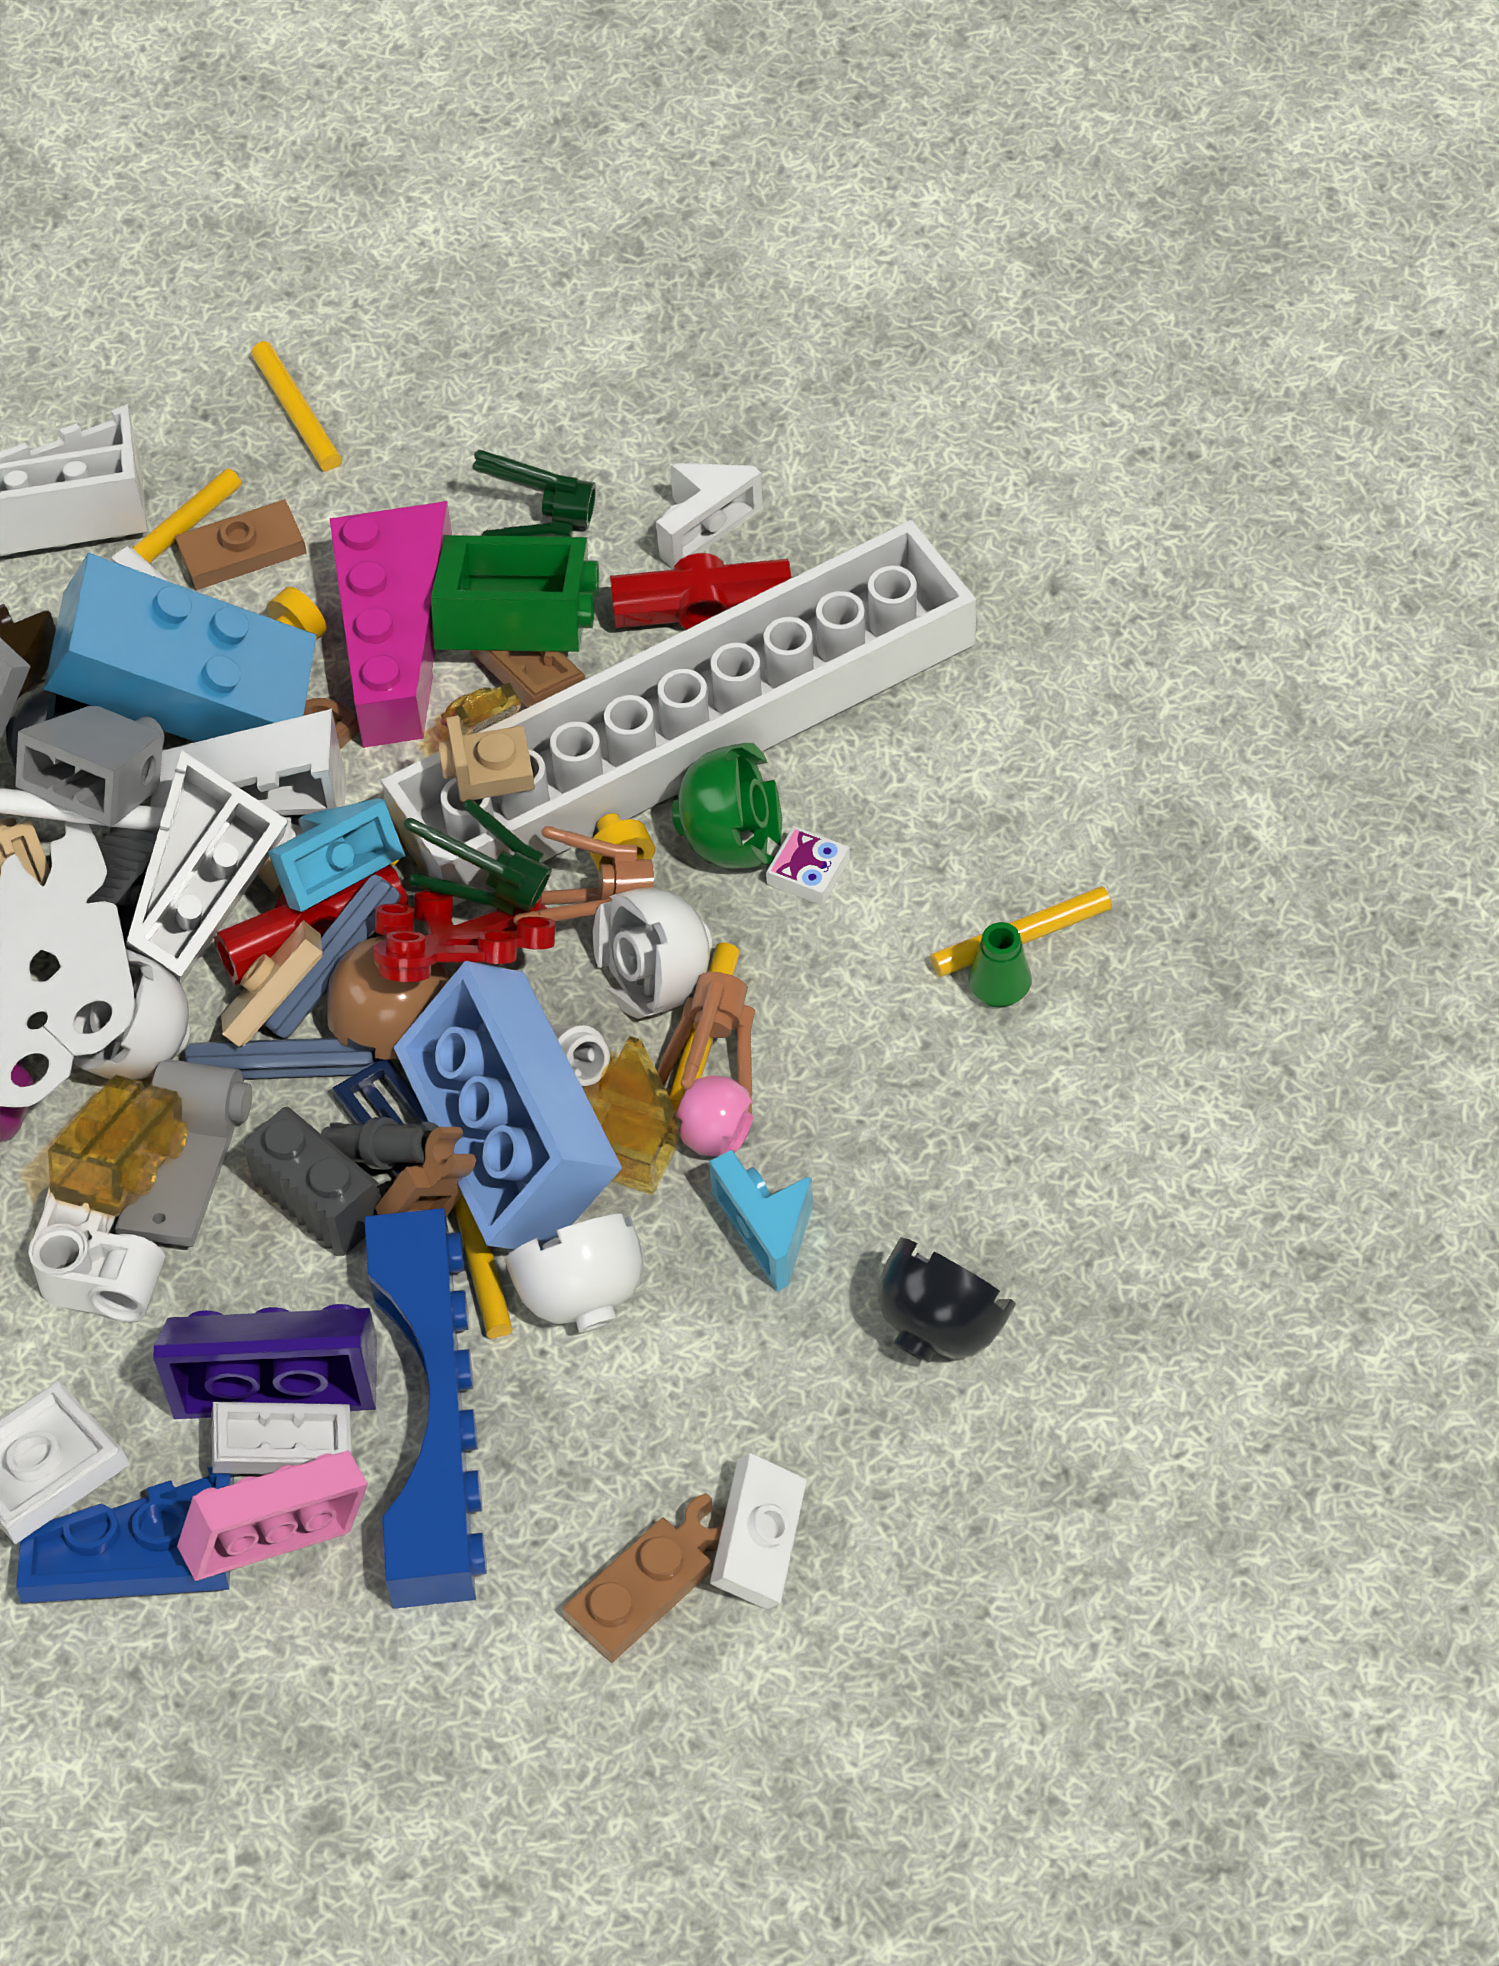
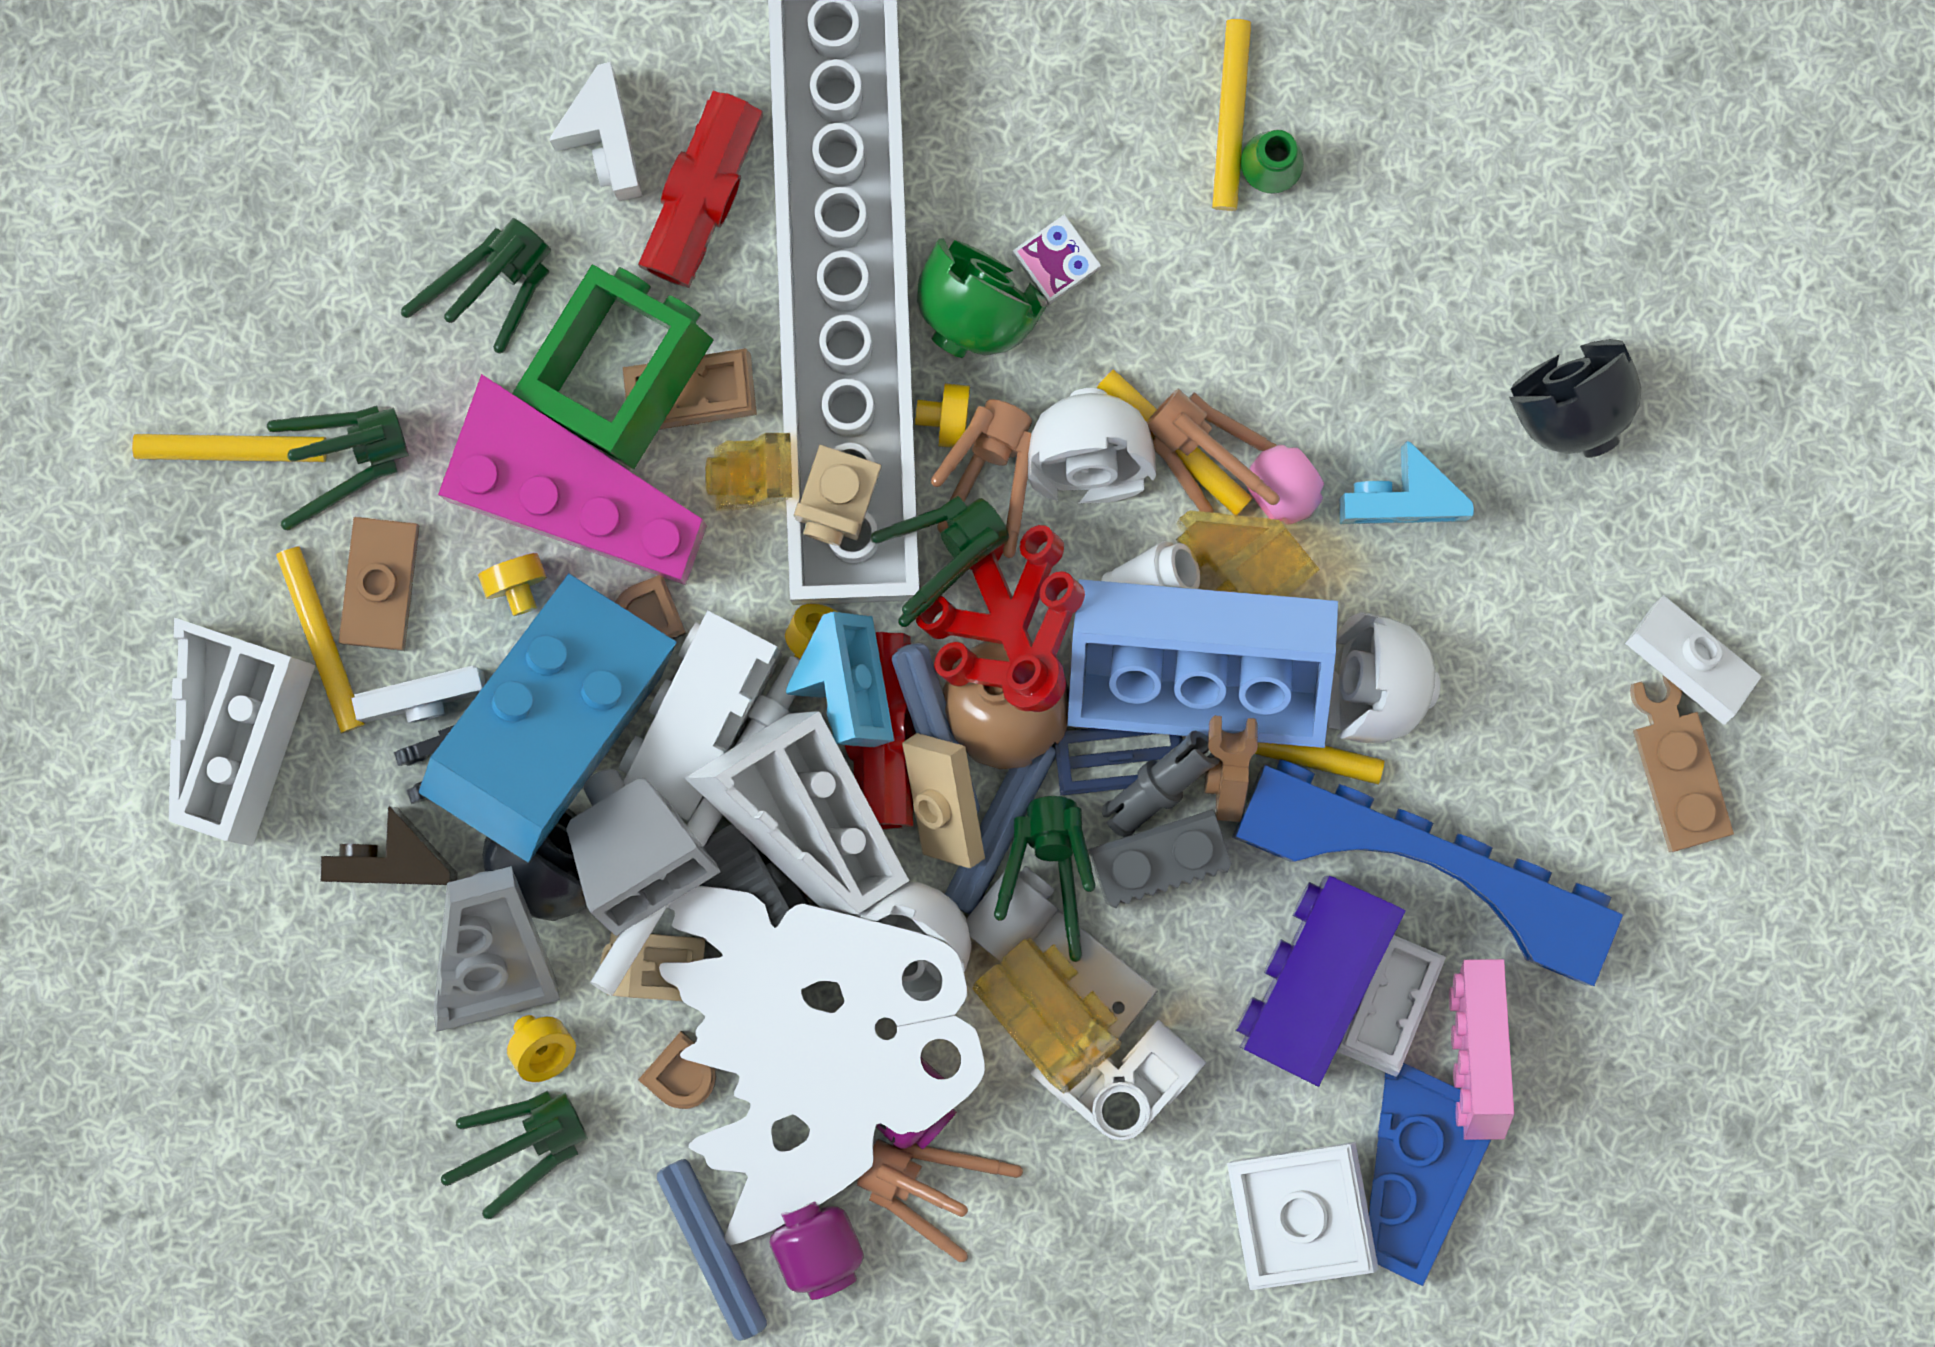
camera: 65 degrees left, 30 degrees up
(290, 1084) = (1055, 834): none -> dark green plant
(355, 480) = (373, 438): none -> dark green plant

